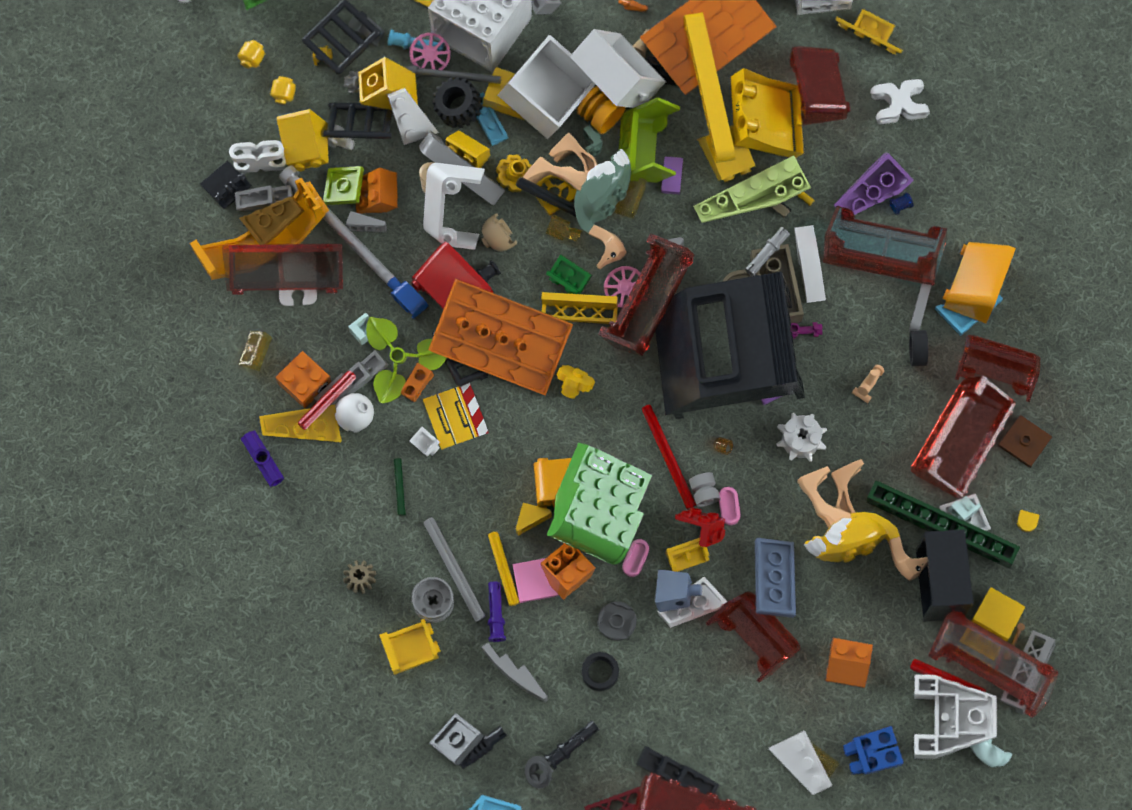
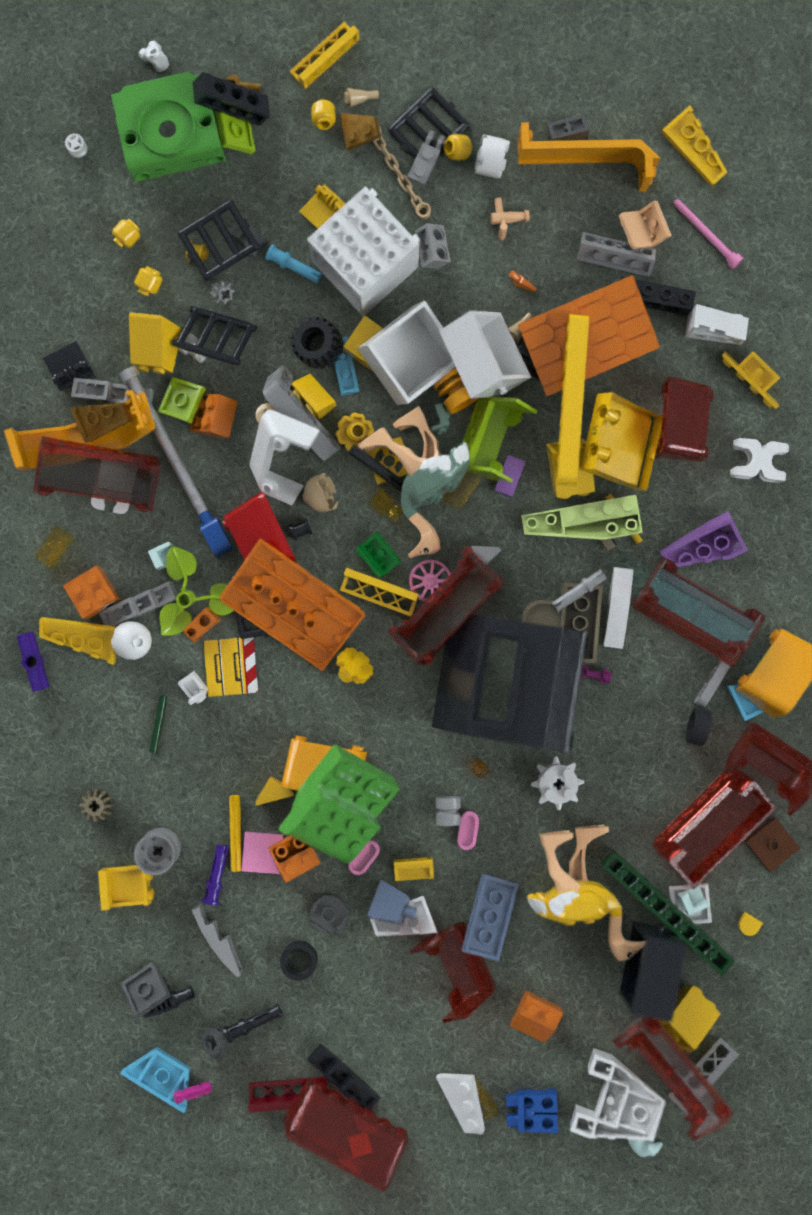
camera: 15 degrees right, 15 degrees up
(258, 156) = (102, 347): white piece -> none
(326, 400) = (106, 623): axle -> none
(360, 222) = (188, 443): light grey slope -> none
(384, 78) = (251, 307): yellow slope -> none
(409, 117) = (263, 346): white wing -> none
(430, 52) = (304, 281): bright pink wheel -> none
(451, 74) = (286, 295): dark grey bar -> none
(454, 569) = (188, 821): light grey axle -> none
(668, 456) = (423, 763): red axle -> none
(712, 525) = (437, 846): red bracket -> none
(868, 383) = (639, 747): light nougat piece -> none
(901, 203) = (727, 568): clear blue bush -> none
(927, 669) = (625, 1057): red axle -> none

